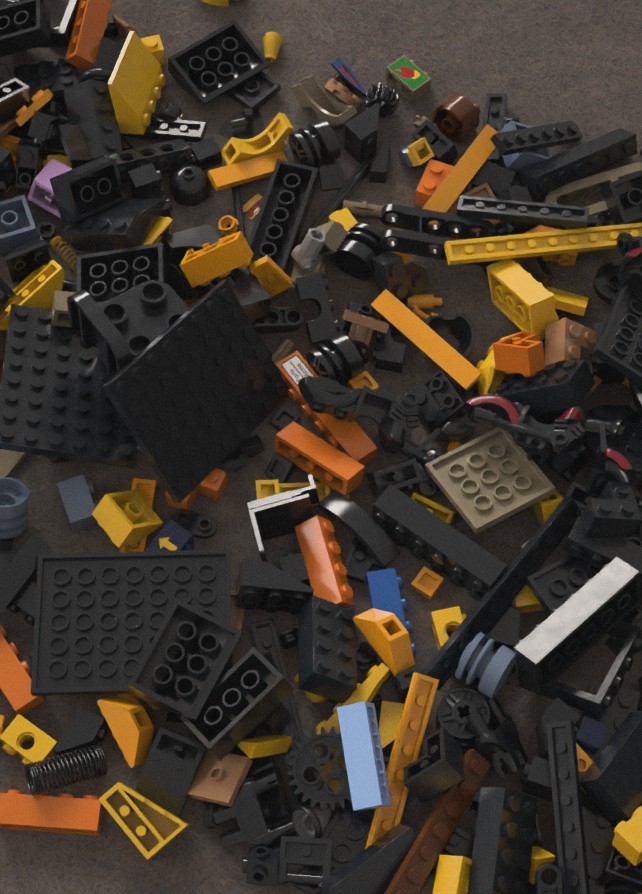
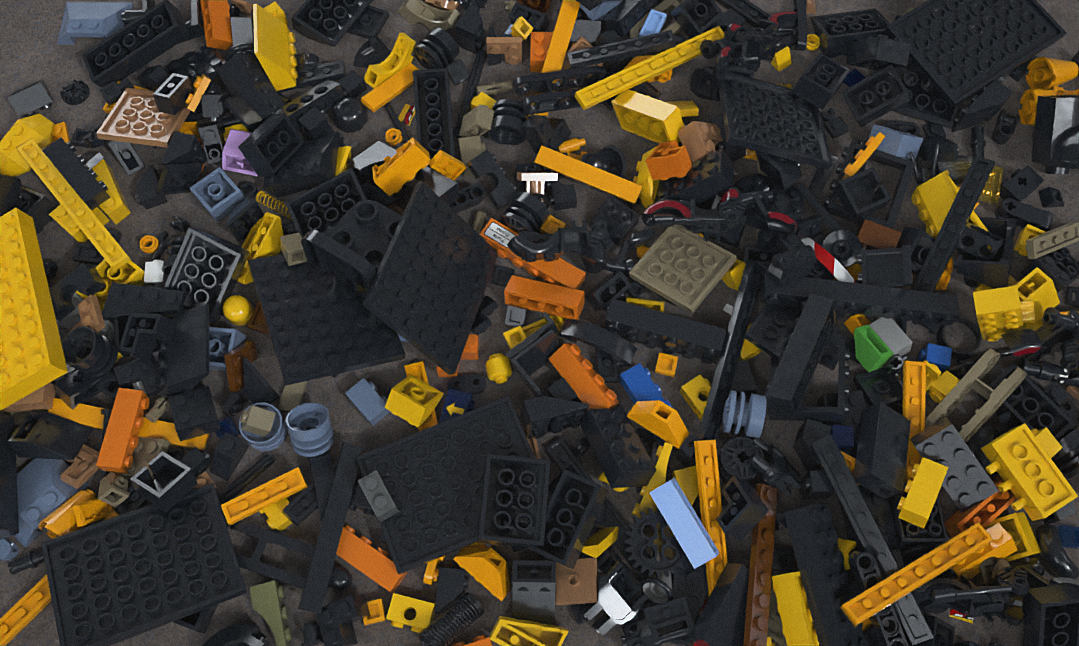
camera: 20 degrees left, 5 degrees up
(43, 602) = (378, 496): none -> dark grey brick
(70, 706) = (432, 571): none -> light orange plate
(235, 518) = (498, 368): none -> yellow head
(306, 253) = (468, 137): light grey piece -> none
(399, 168) = (506, 45): none -> medium nougat plate
(577, 194) = (653, 23): none -> light blue tile

